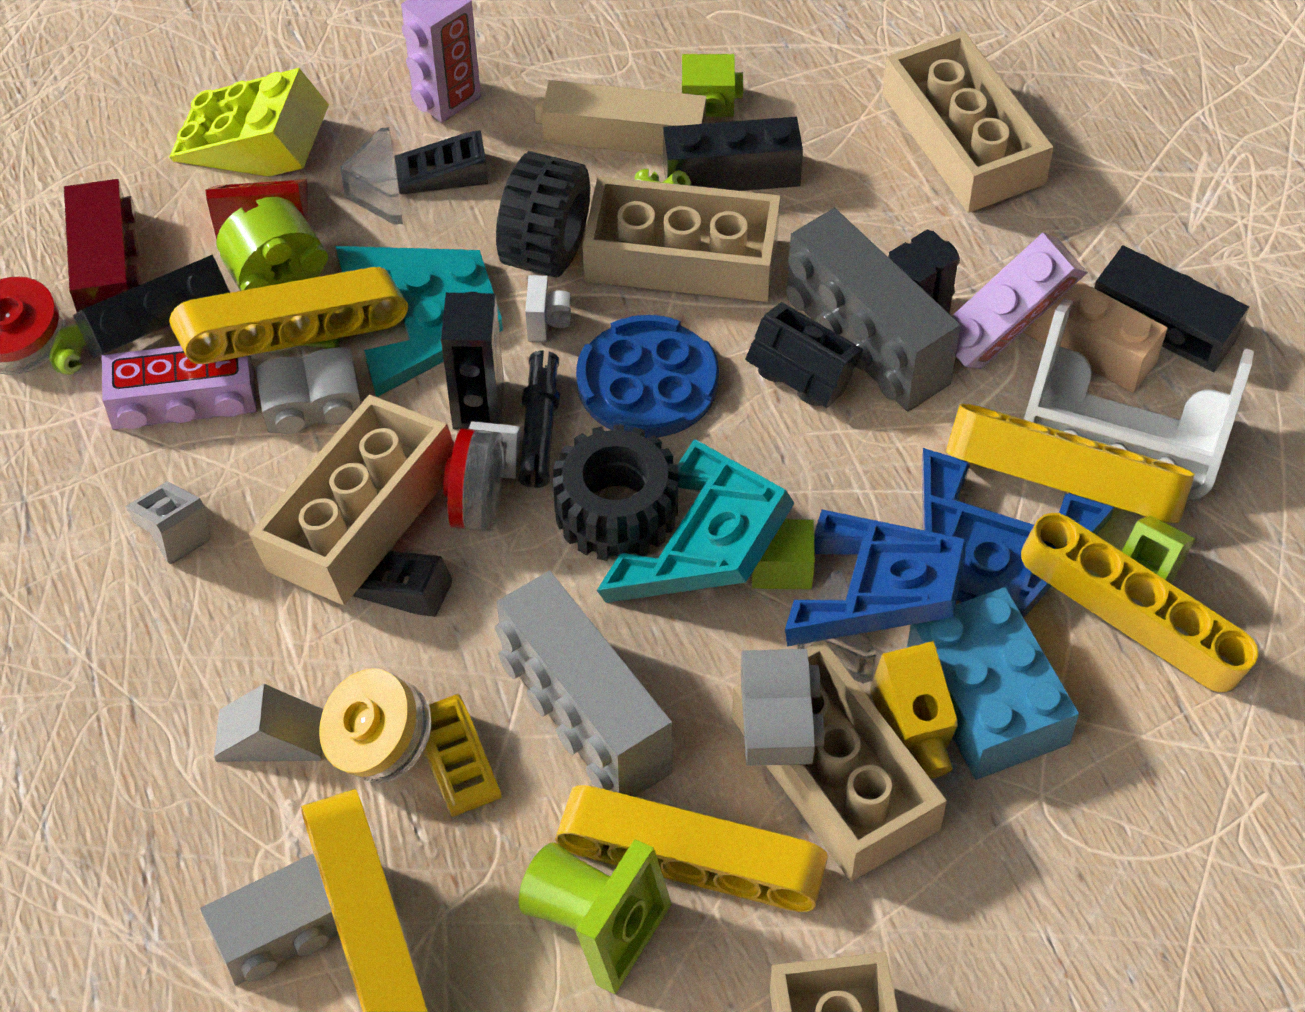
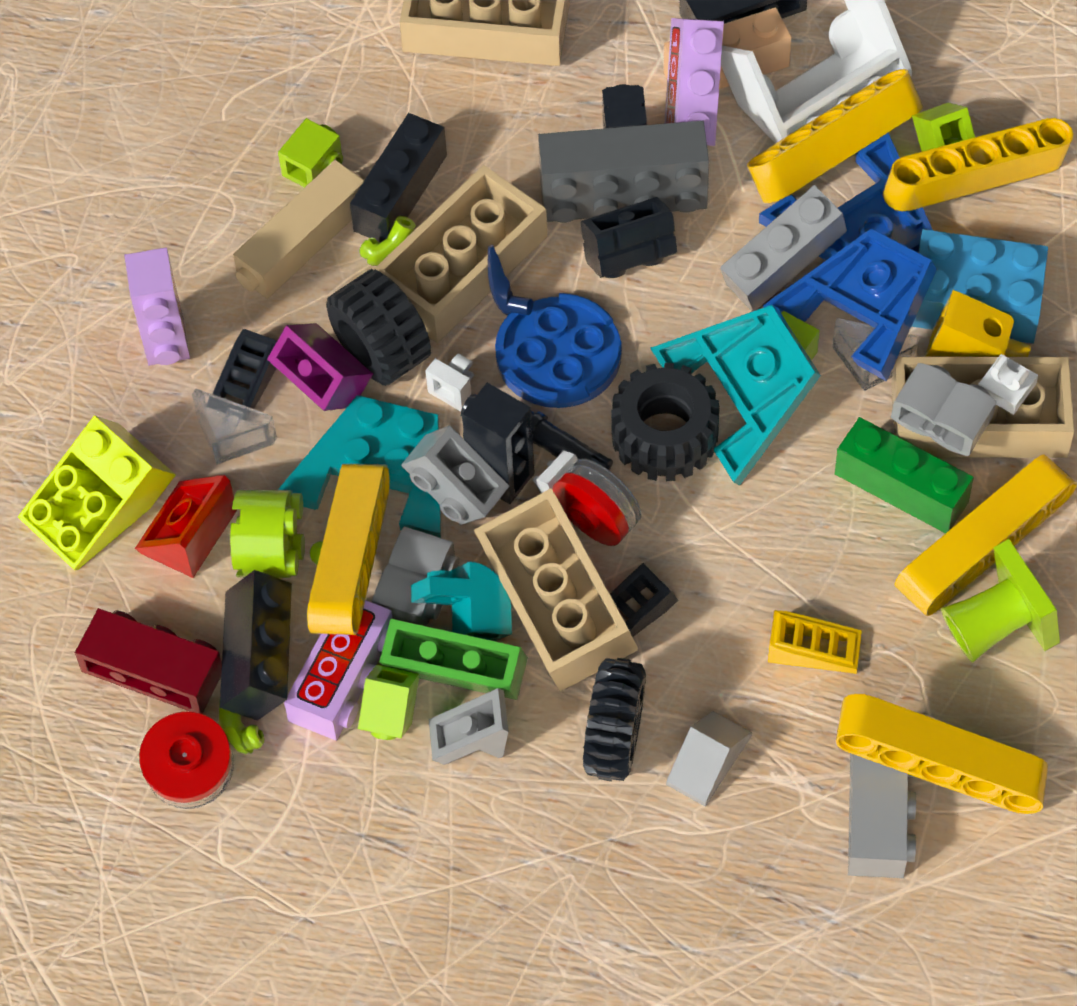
camera: 55 degrees left, 5 degrees up
(156, 434) = (388, 702): none -> brick
(229, 458) = (454, 658): none -> bright green brick
(237, 617) = (614, 719): none -> black gear
(303, 439) = (476, 596): none -> teal brick
(375, 726) = (766, 676): yellow piece -> none
(421, 367) = (454, 476): none -> light grey brick
(474, 201) = (319, 366): none -> magenta brick
(583, 688) = (828, 525): light grey brick -> none
(665, 286) = (501, 288): none -> dark blue bar
(705, 730) = (903, 475): none -> green brick
(861, 754) = (1008, 383): none -> white tile
(888, 482) = (783, 248): none -> light grey brick

